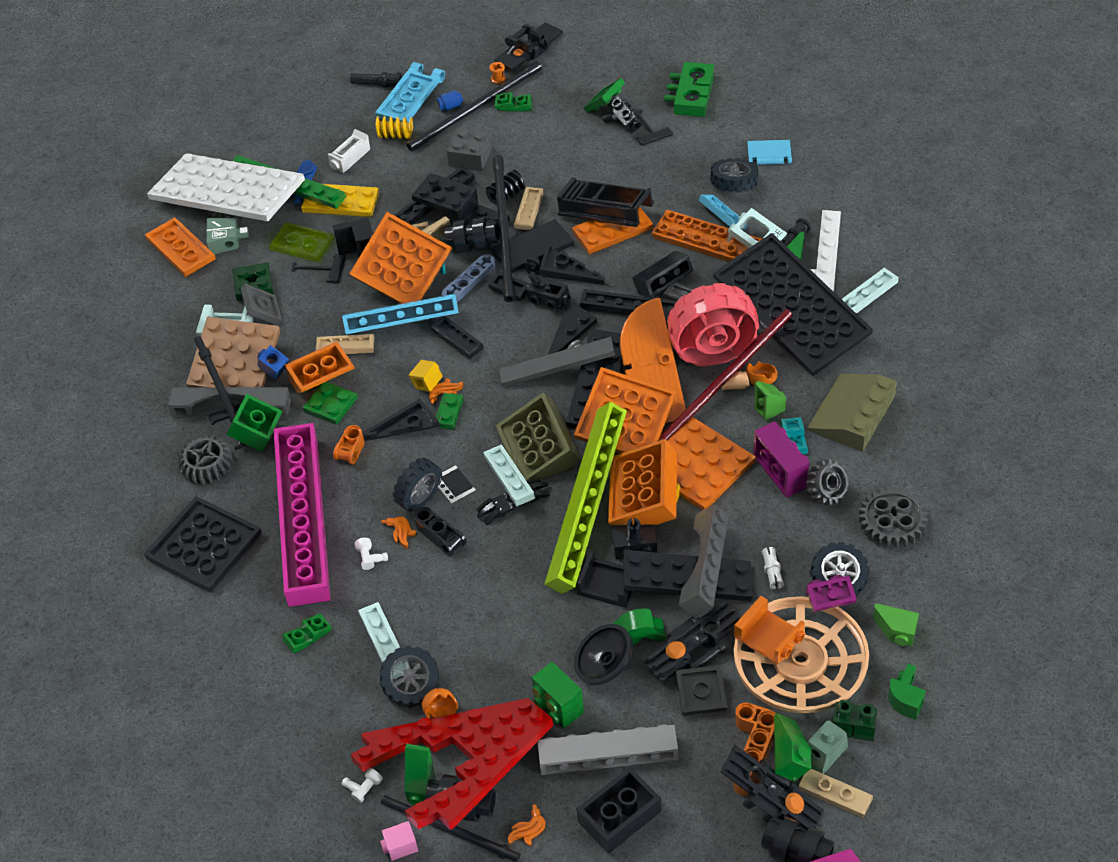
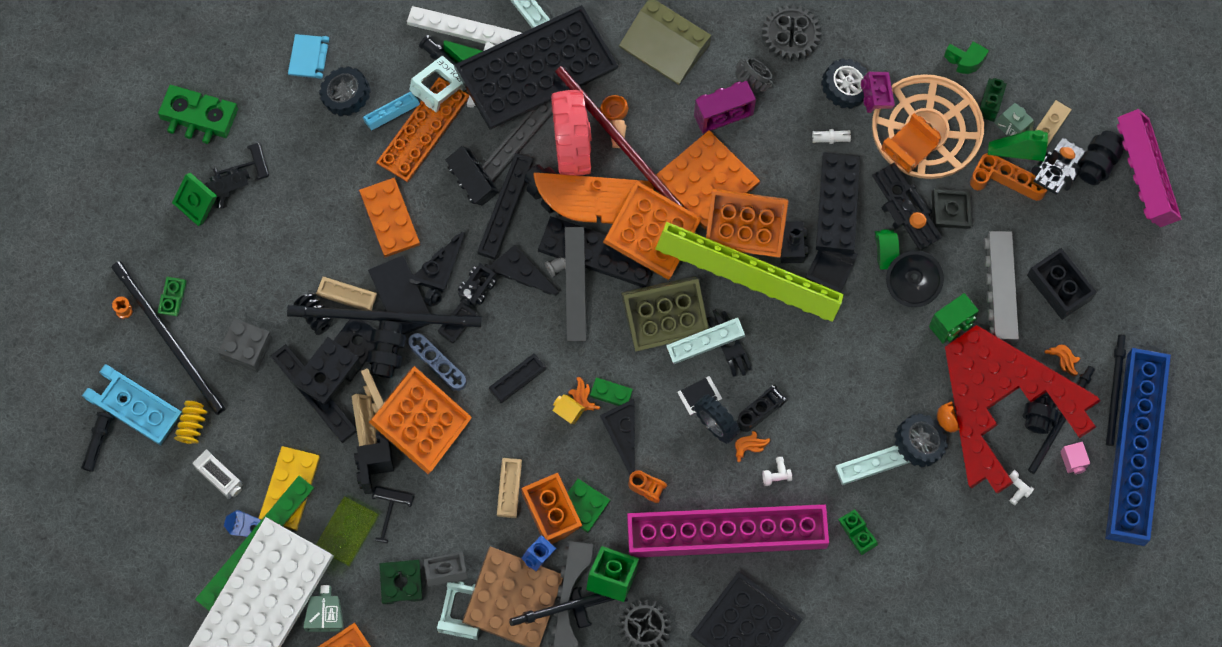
camera: 90 degrees left, 20 degrees up
(400, 313) = (484, 428): medium azure brick -> none
(418, 772) = (1027, 434): green slope -> none
(450, 100) = (156, 362): blue brick -> none
(521, 50) = (86, 266): black piece -> none
(573, 206) = (359, 248): black piece -> none
(701, 587) = (868, 190): dark grey arch -> none
(768, 400) = (650, 106): bright green slope -> none
(795, 432) = (684, 95): teal slope -> none
(896, 623) = (902, 51): bright green slope -> none

